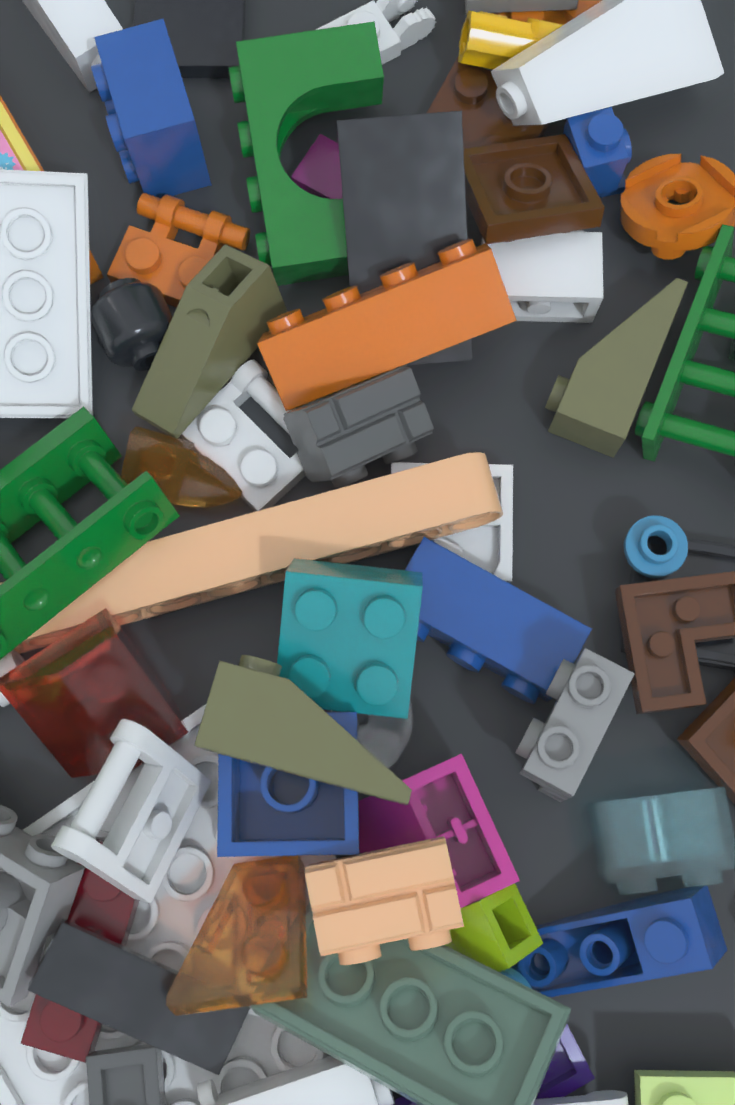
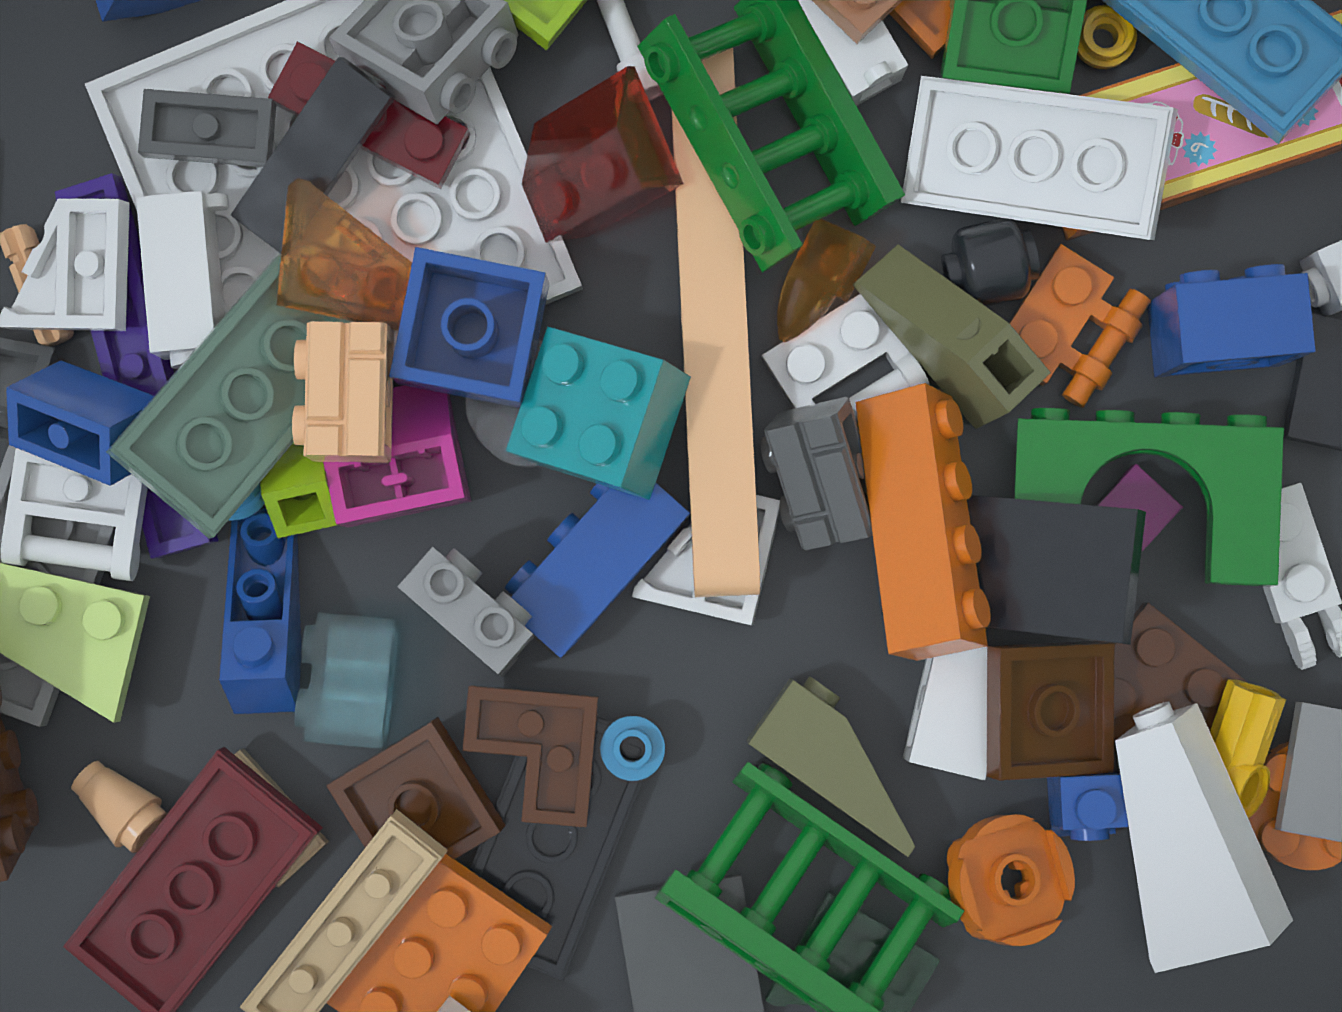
camera: 100 degrees right, 10 degrees up
(150, 821) = (466, 191): white plate -> none
(277, 726) = (511, 329): olive slope -> none

